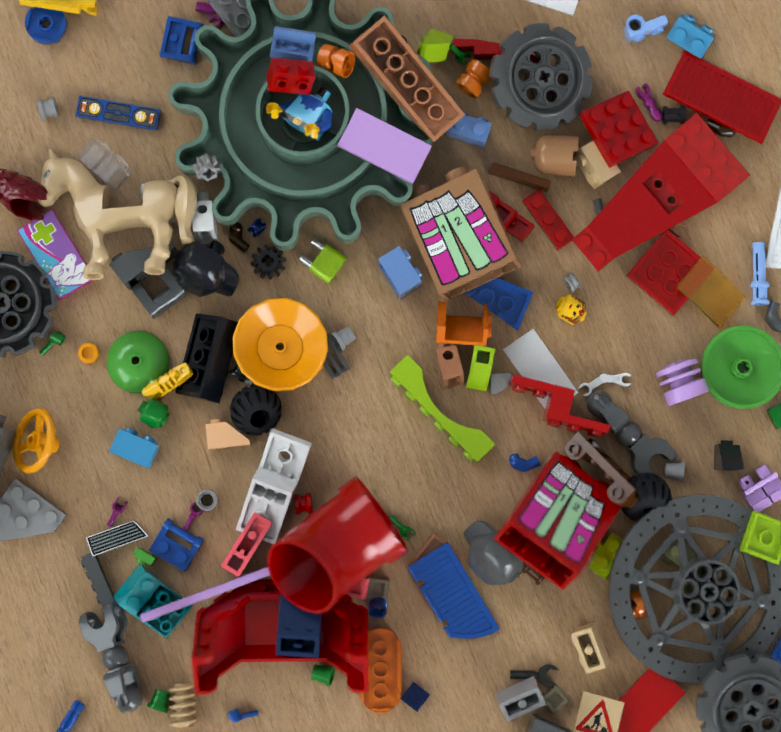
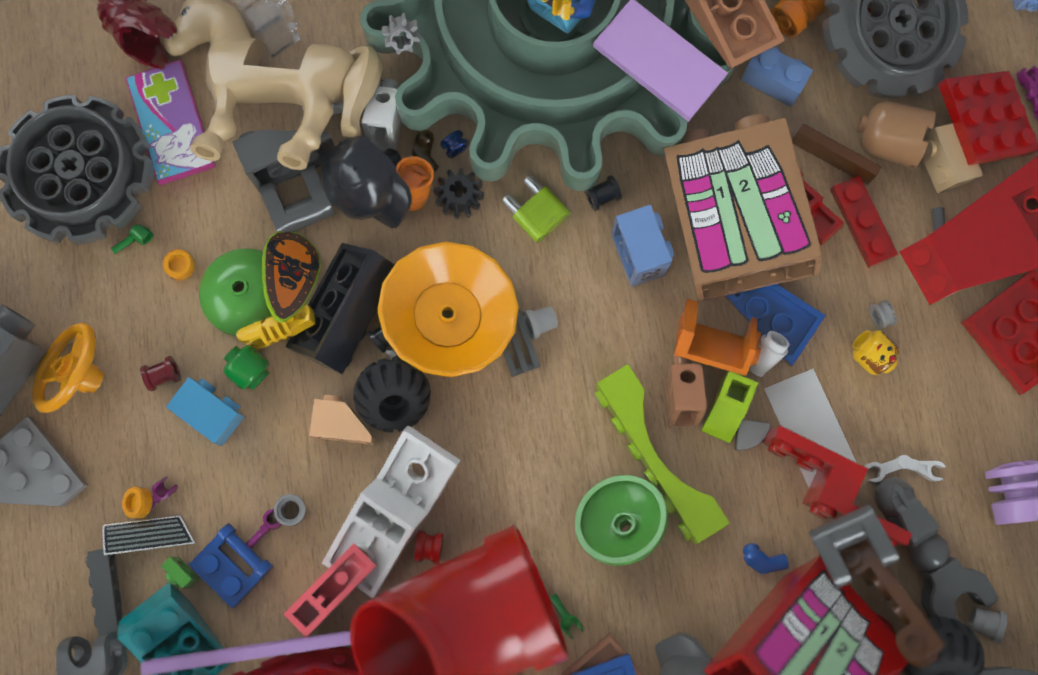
camera: 15 degrees right, 5 degrees down
(96, 430) = (160, 373): none -> dark red bush
(104, 518) = (137, 502): none -> light orange tile
(167, 343) = (288, 273): none -> shield
(238, 258) = (419, 178): none -> orange wheel
(367, 239) = (603, 193): none -> black bush
(417, 451) = (609, 509): none -> bright green dish
(500, 324) = (773, 349): none -> white cone
(567, 433) = (846, 532): none -> dark grey connector

